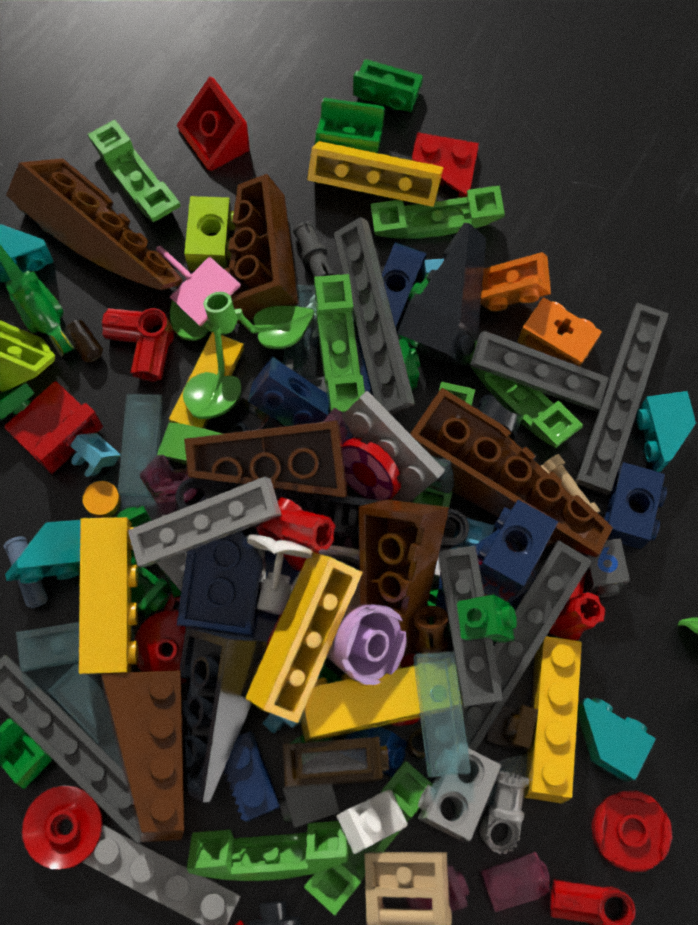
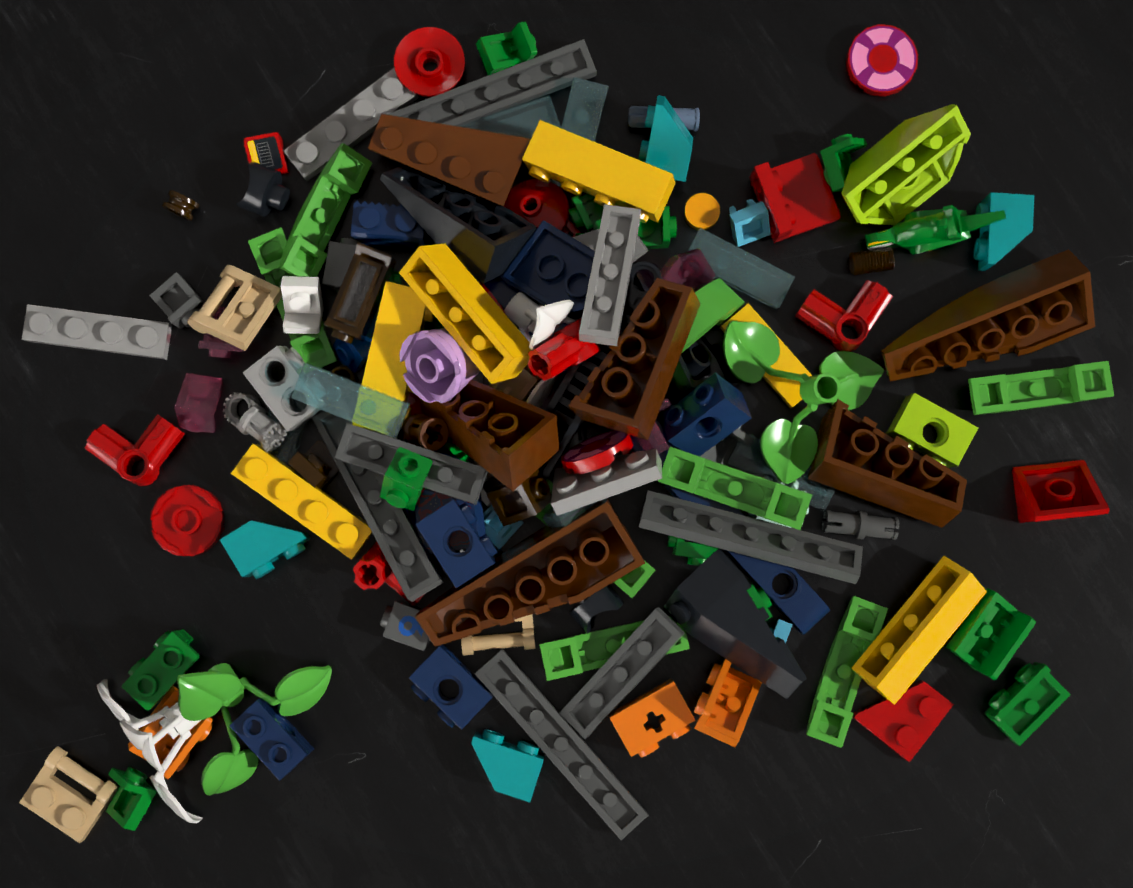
camera: 120 degrees right, 15 degrees up
(202, 282) = (866, 394): bright pink piece -> none
(459, 517) = (523, 502): none -> dark brown bracket

